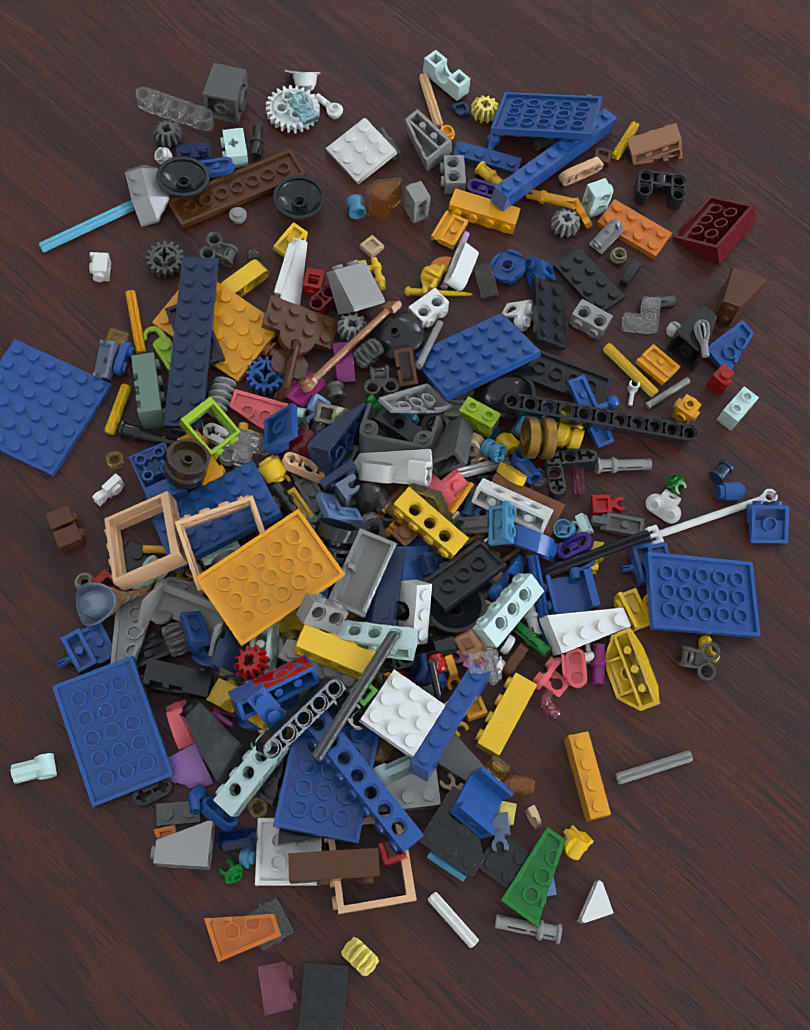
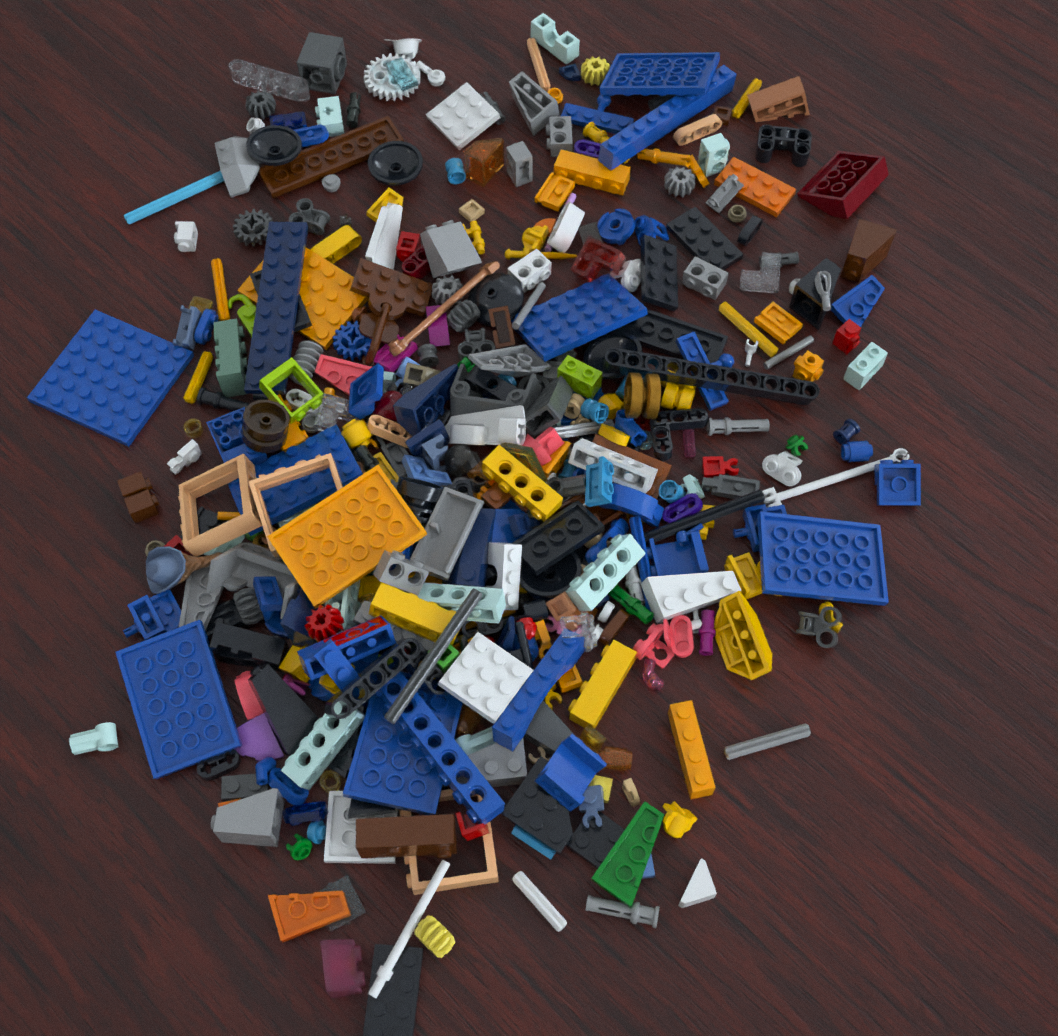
camera: 10 degrees right, 5 degrees down
(315, 991) = (385, 972): none -> white bar
(491, 296) = (594, 256): none -> clear red brick

